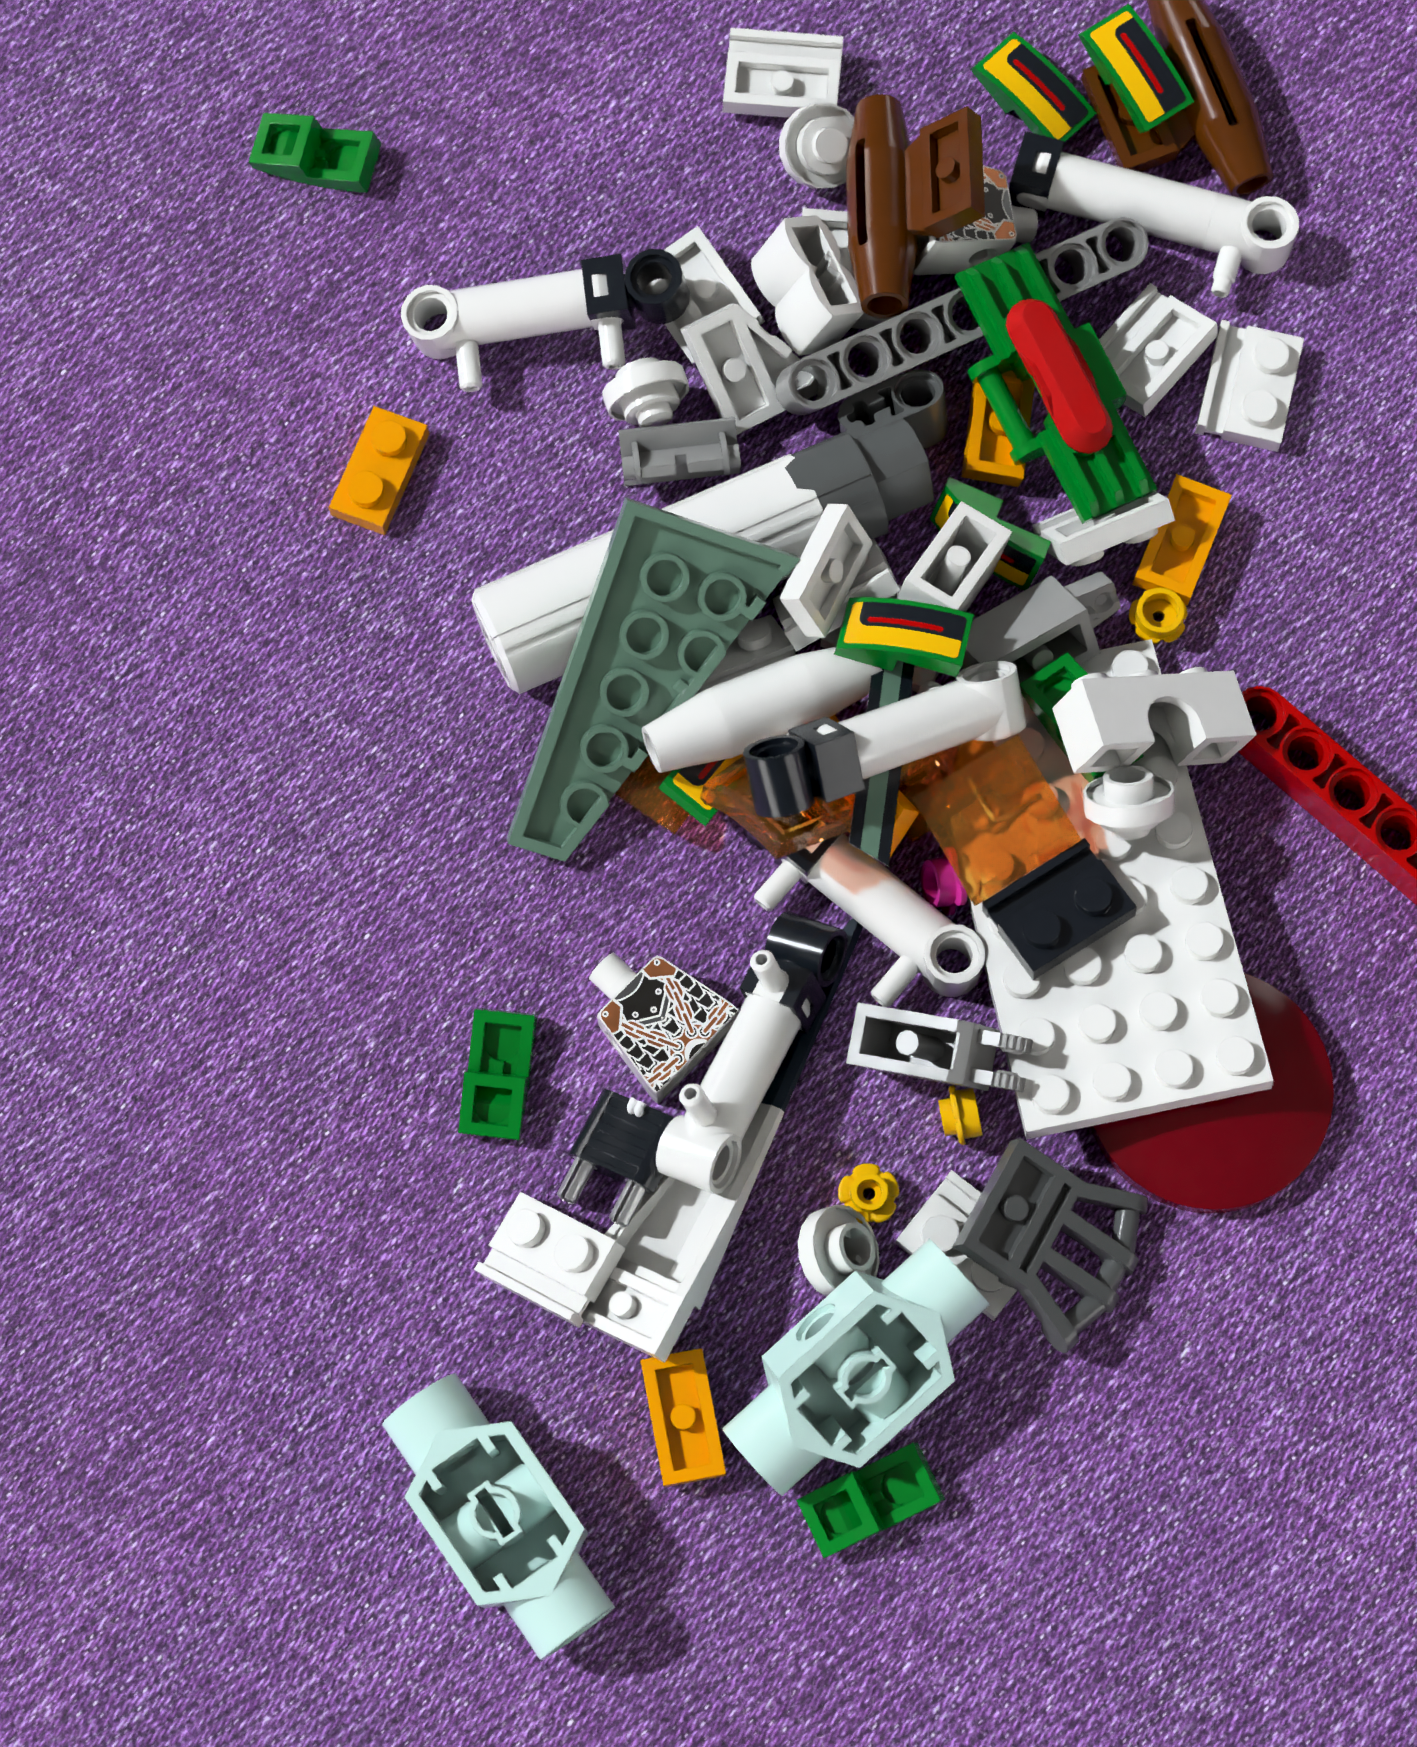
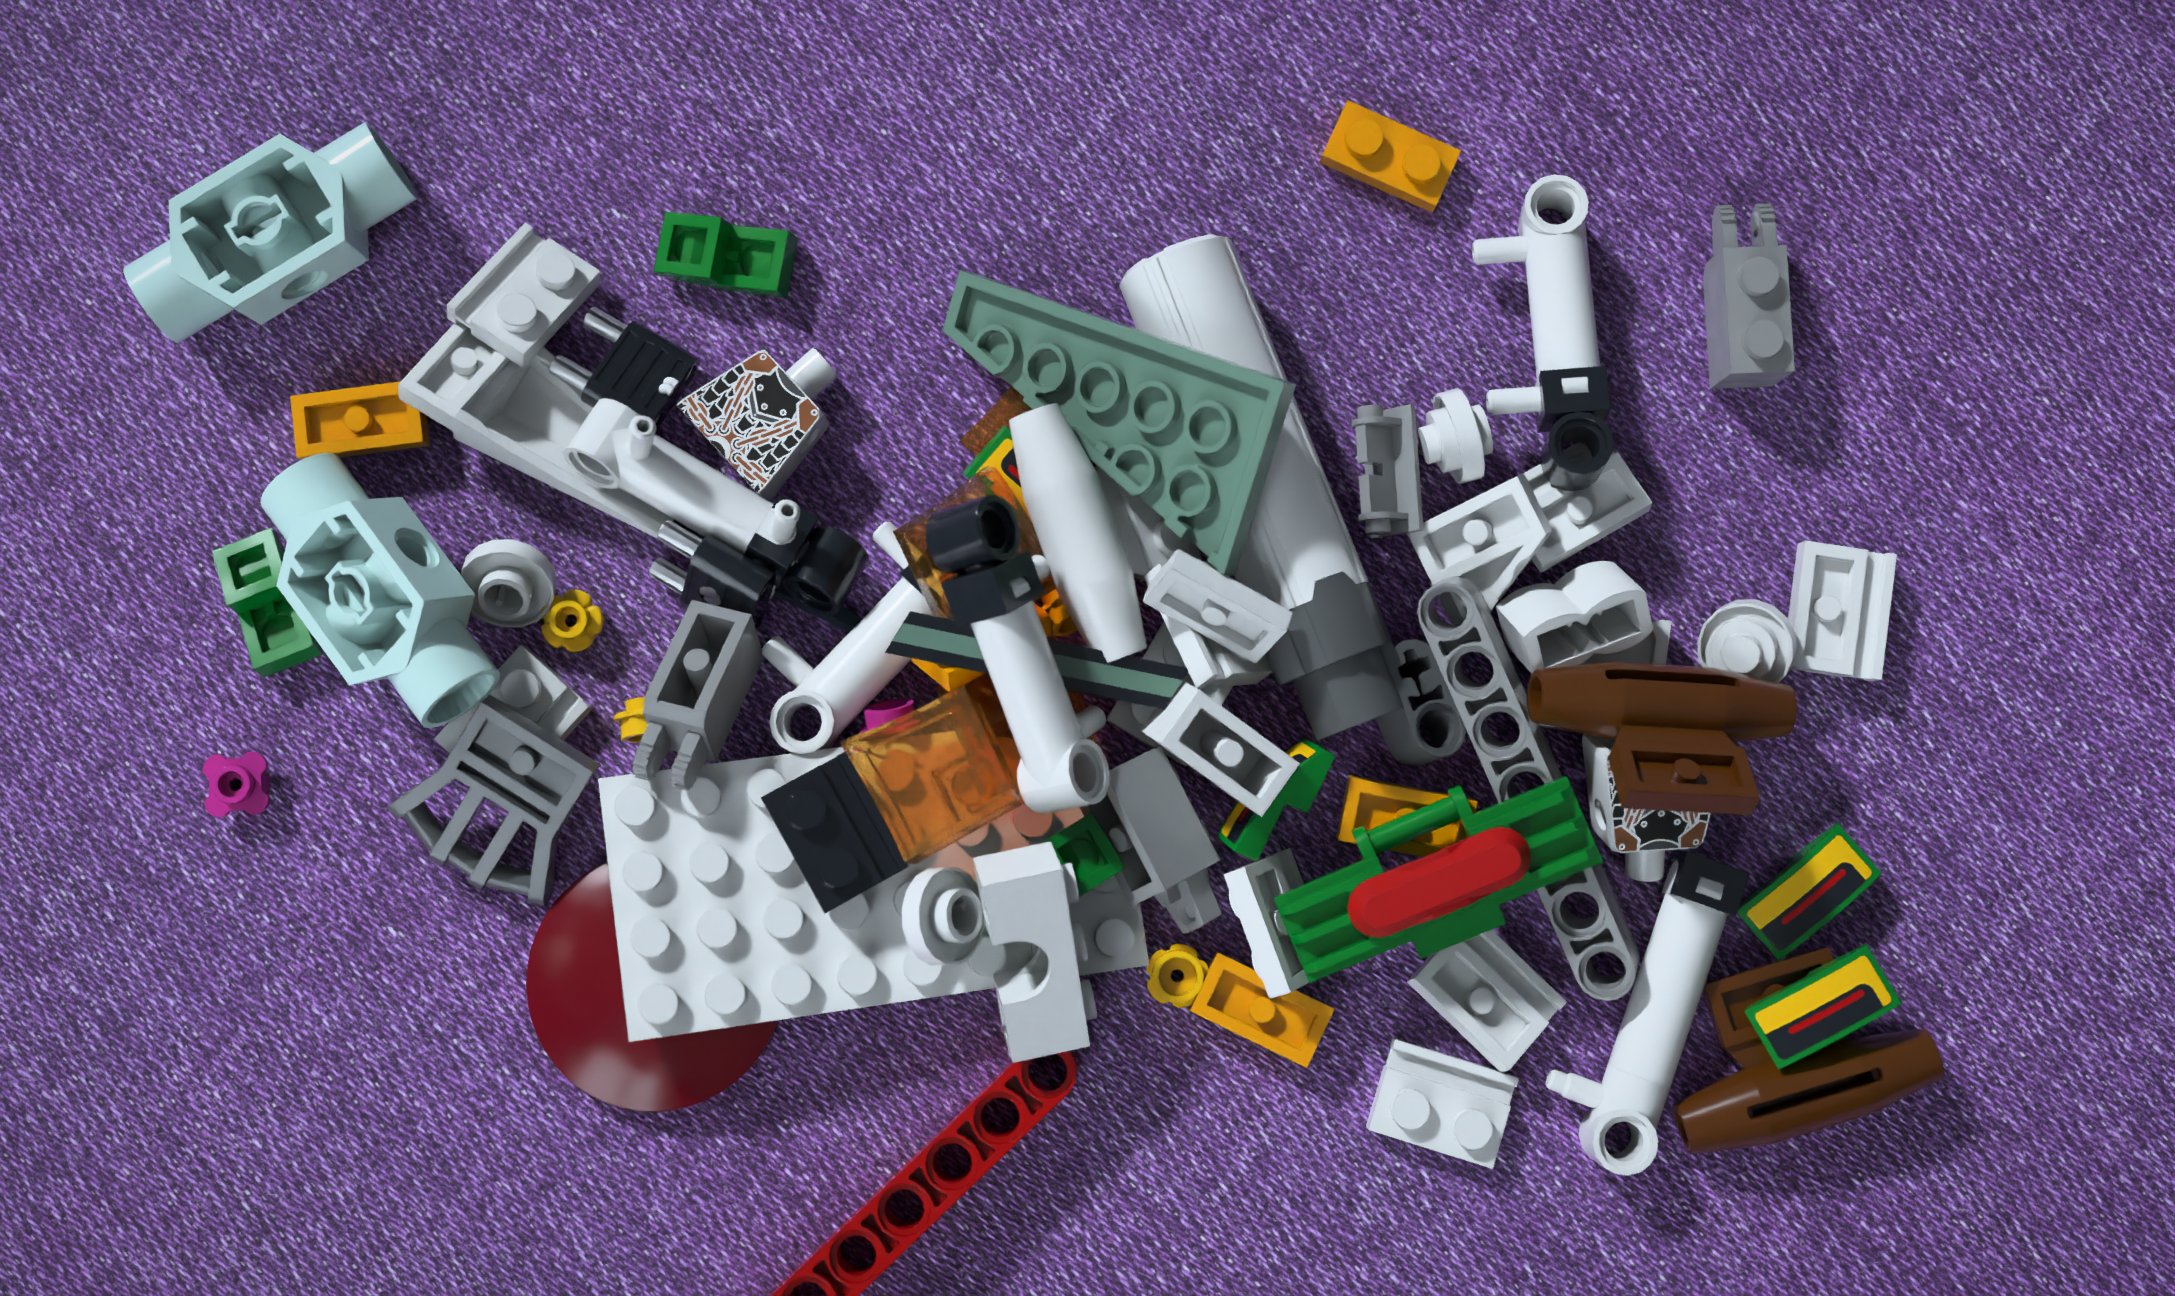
camera: 90 degrees right, 10 degrees up
(313, 155) = (1764, 98): green slope -> none
(507, 155) = (1747, 303): none -> light grey hinge
(821, 1048) = (714, 574): none -> black piece
(905, 631) = (1138, 686): slope -> none
(1044, 1527) = (254, 790): none -> dark pink plate

